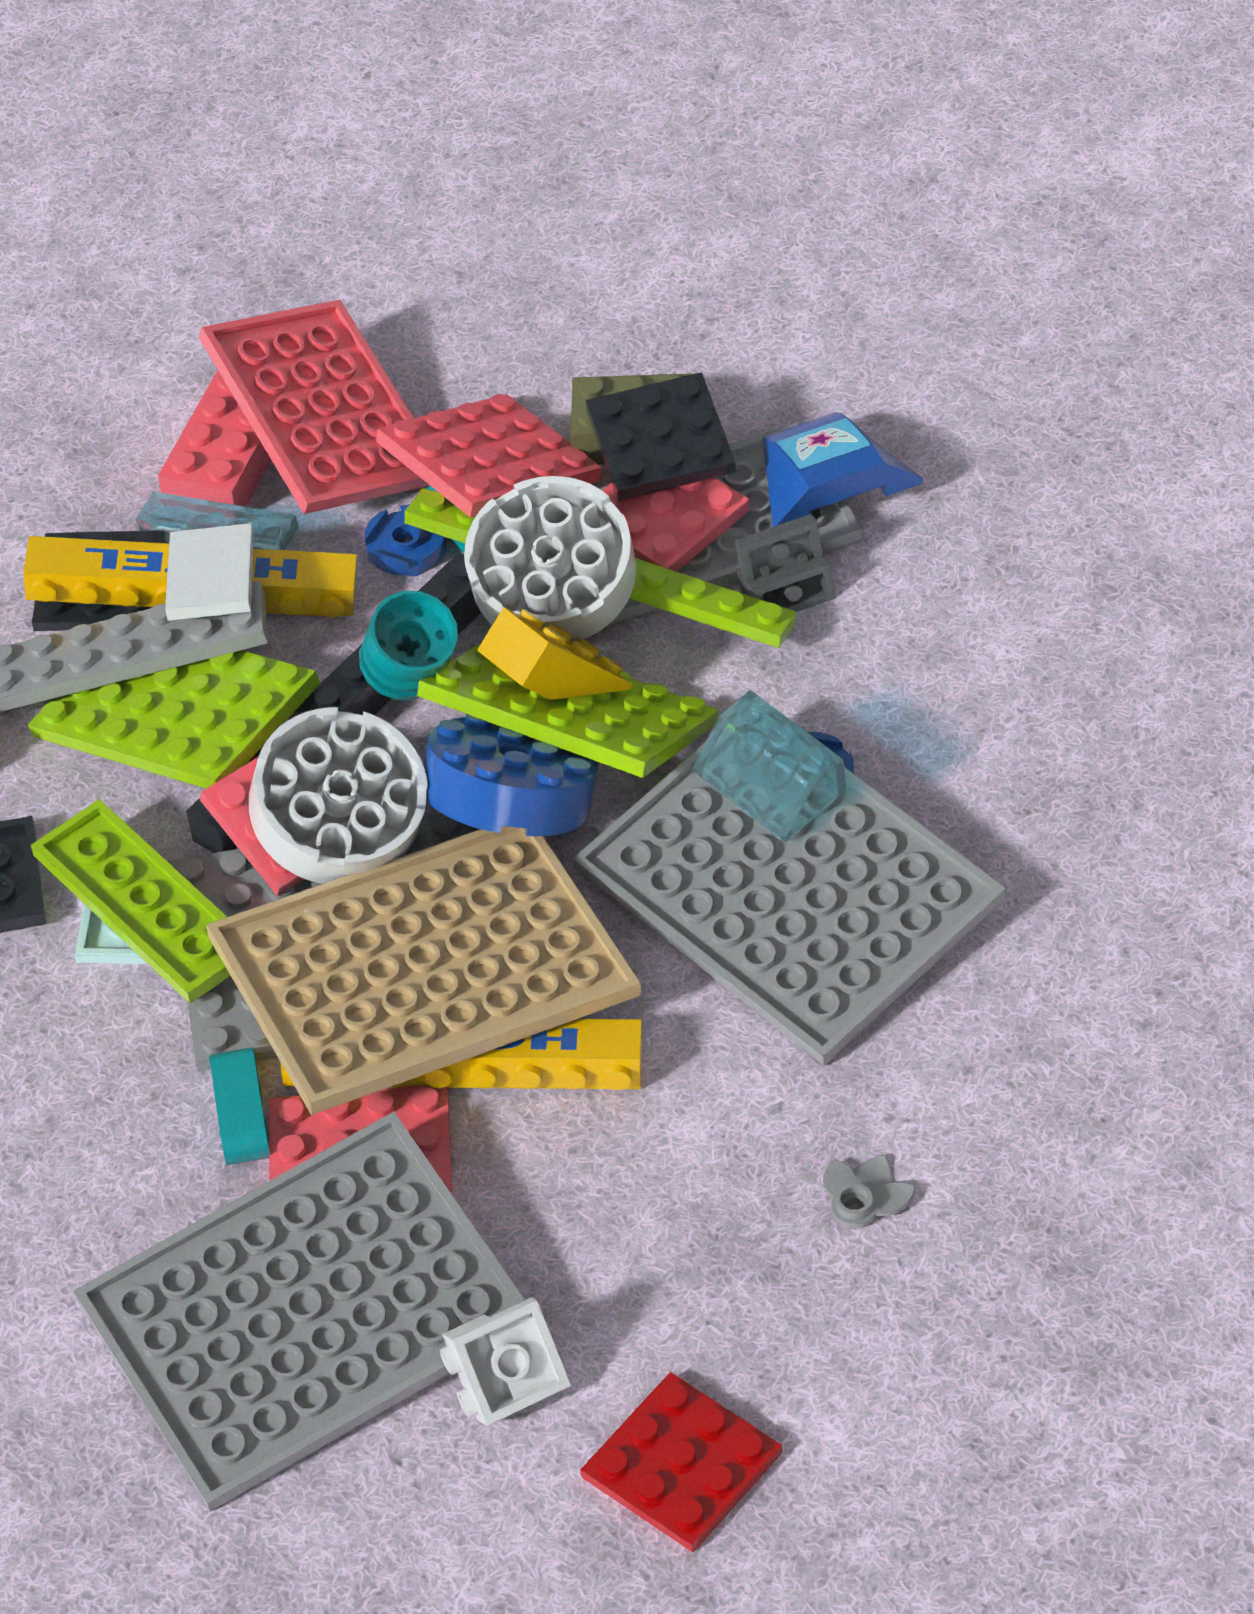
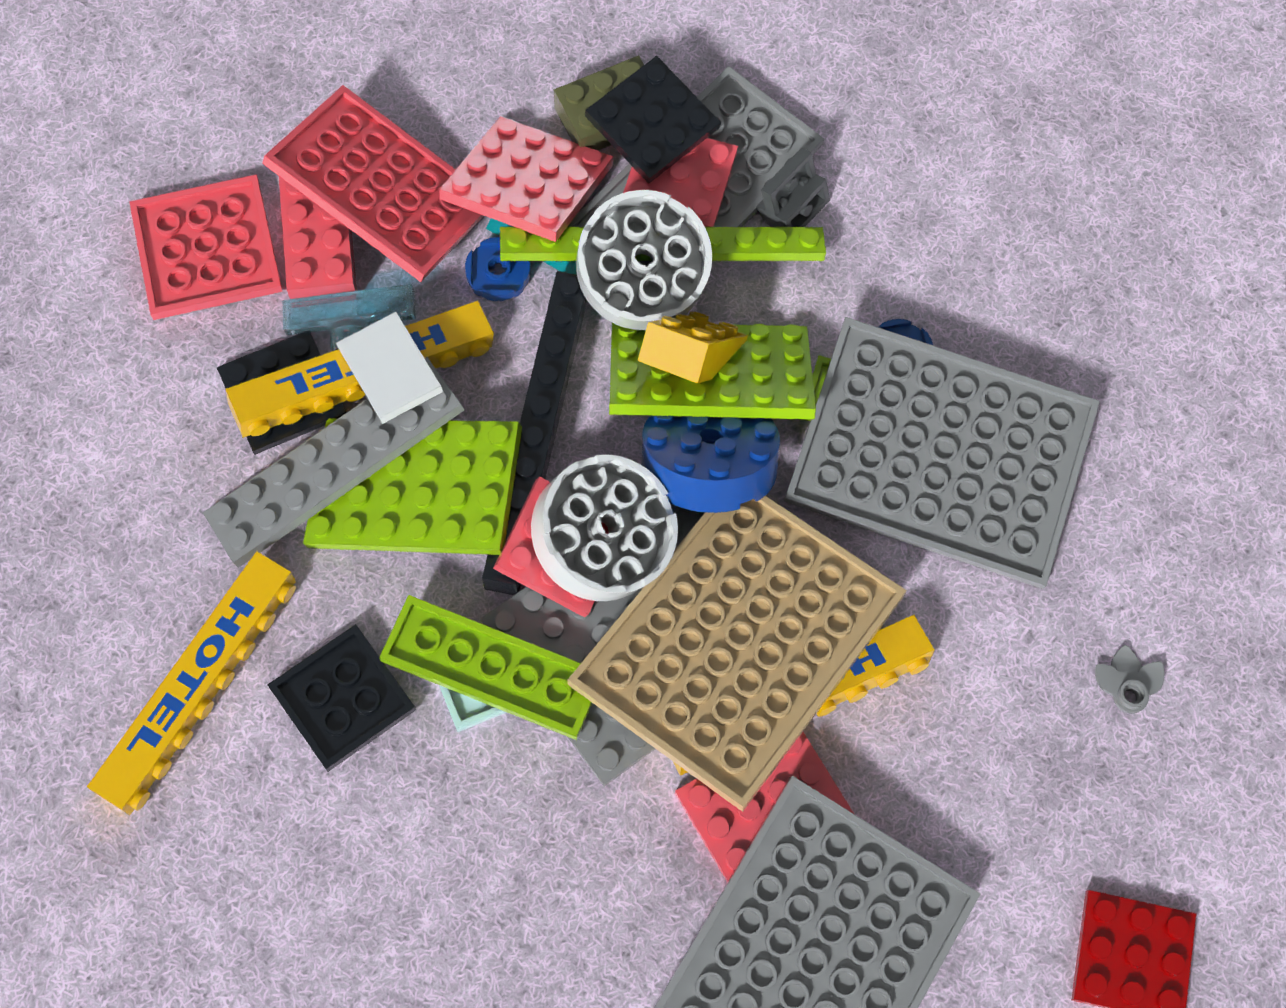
camera: 35 degrees left, 20 degrees up
(106, 417) = (205, 247): none -> coral plate
(239, 1106) = (660, 806): teal beam -> none
(406, 642) = (594, 364): teal wheel -> none
(504, 1362) = (985, 948): white plate -> none
(770, 766) = (895, 372): clear light blue slope -> none
(827, 464) = (773, 99): blue wedge -> none

